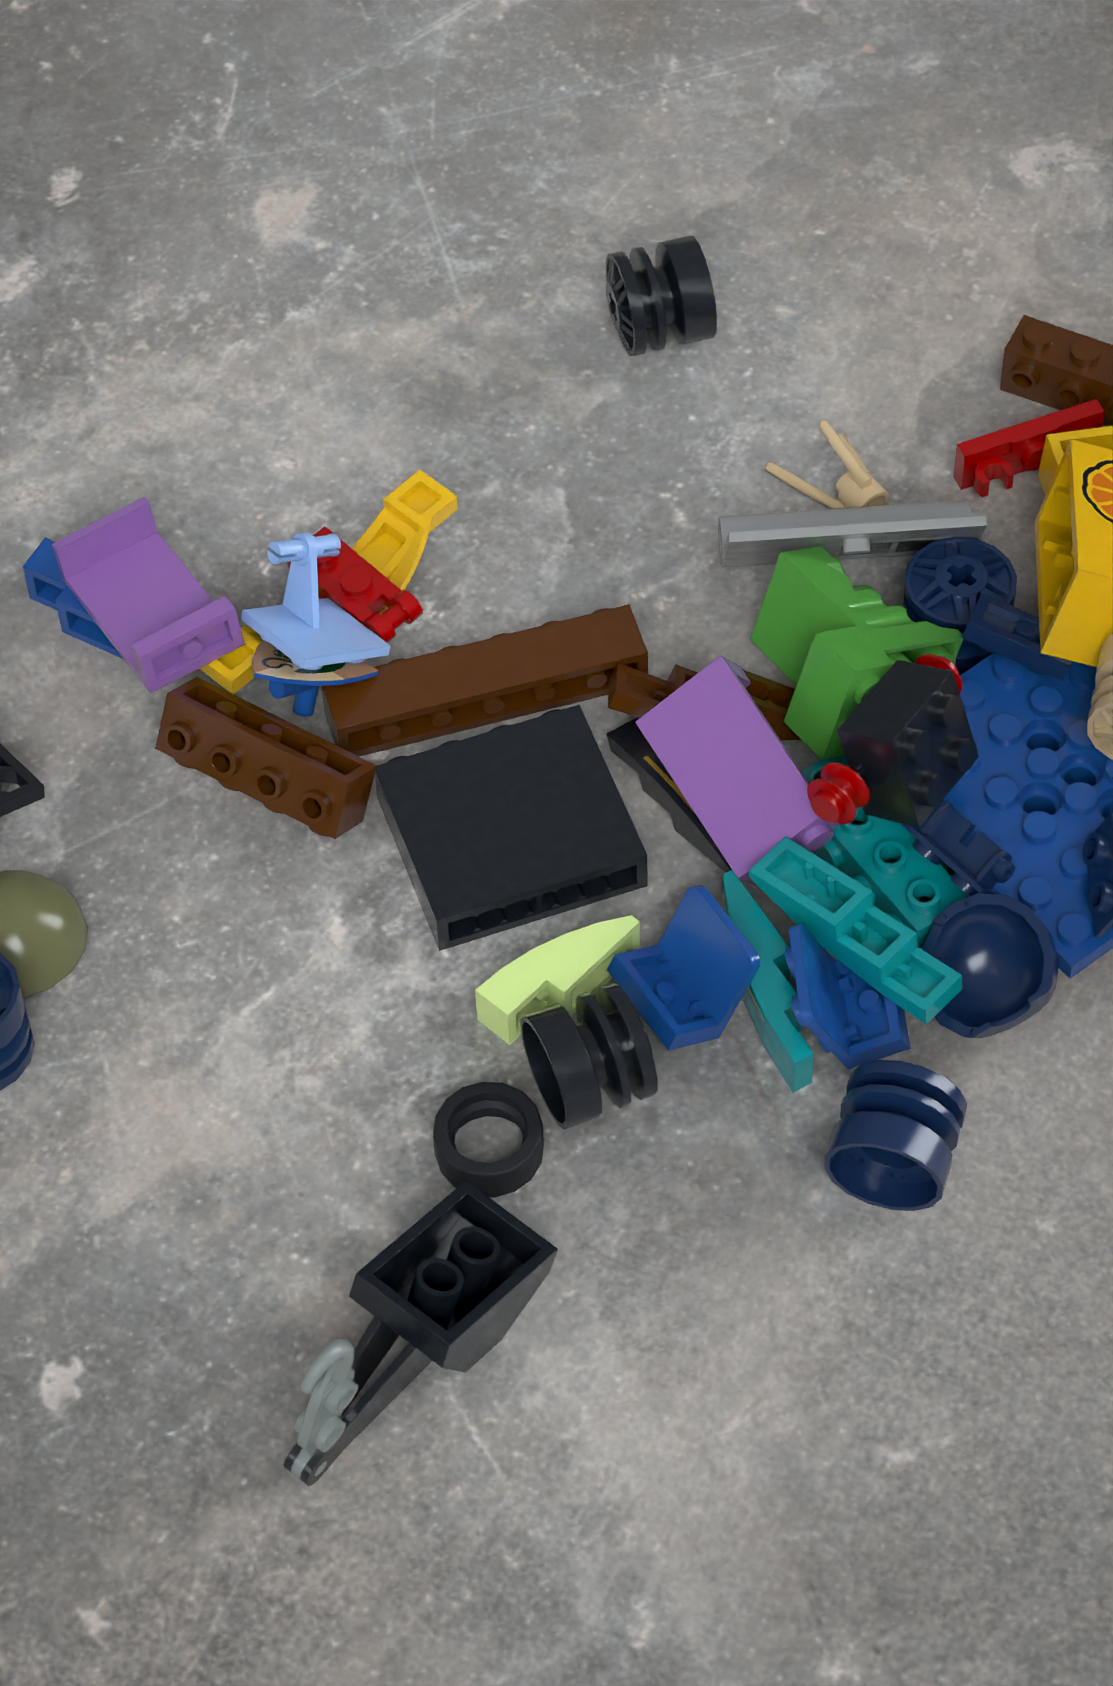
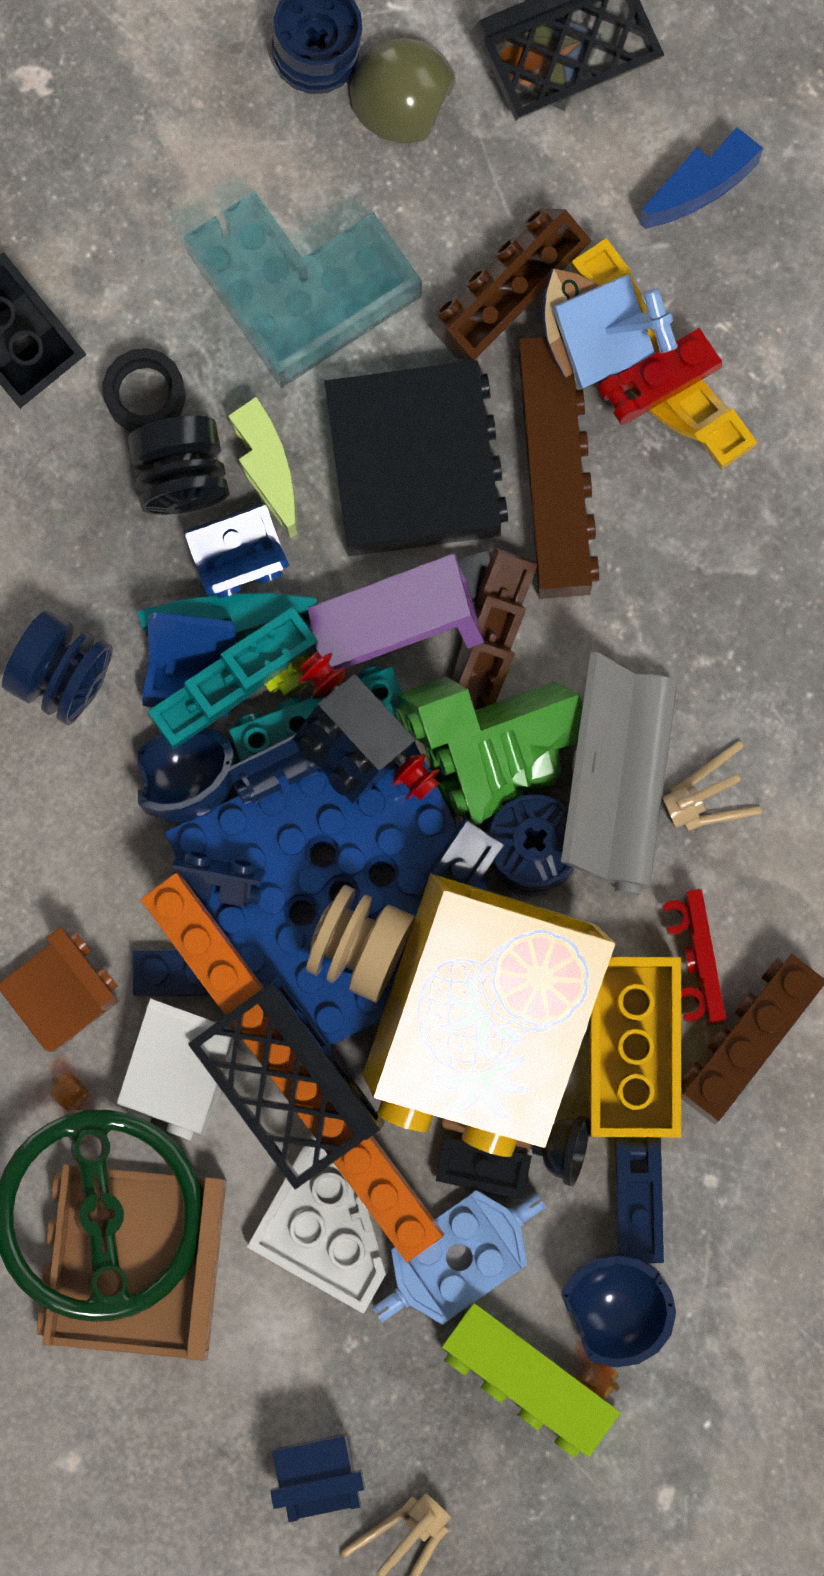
camera: 105 degrees right, 25 degrees up
(145, 597) = (665, 210): medium lavender panel -> none
(333, 984) = (297, 306): none -> clear light blue piece

